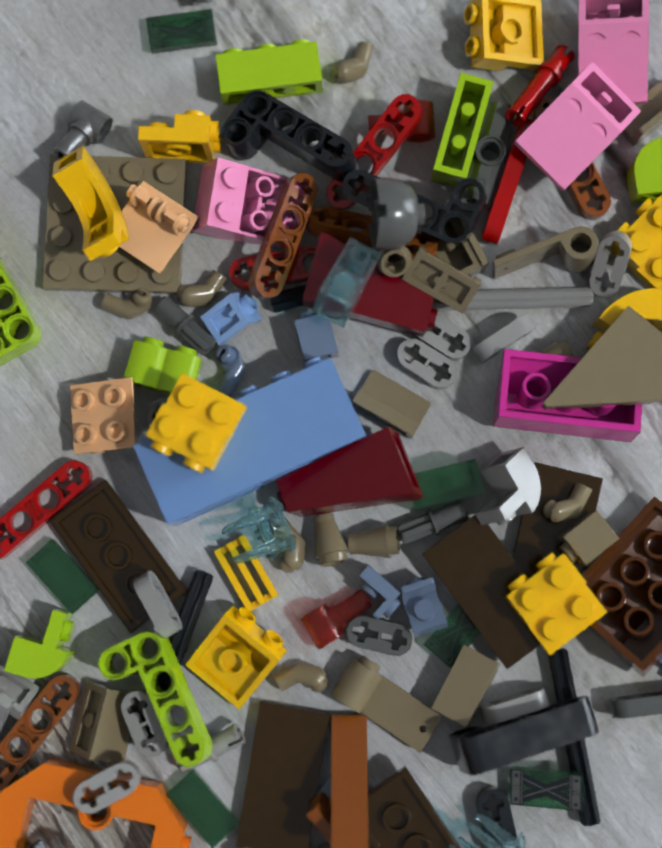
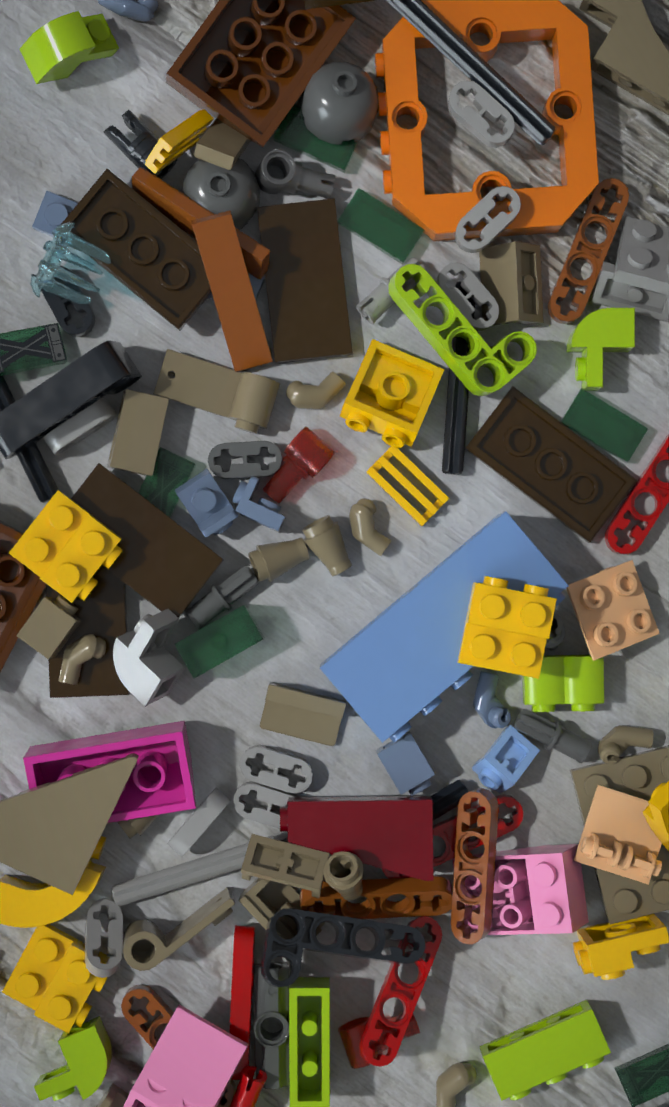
camera: 165 degrees right, 5 degrees up
(157, 604) = (492, 424): light grey beam -> none
(201, 294) = (547, 775): dark tan arm -> none
(272, 544) = (408, 549): clear light blue piece -> none
(294, 140) = (492, 979): black beam -> none
(346, 282) = (388, 830): clear light blue slope -> none
(354, 477) = (318, 621): dark red slope -> none
(393, 214) = (358, 921): dark grey cylinder -> none

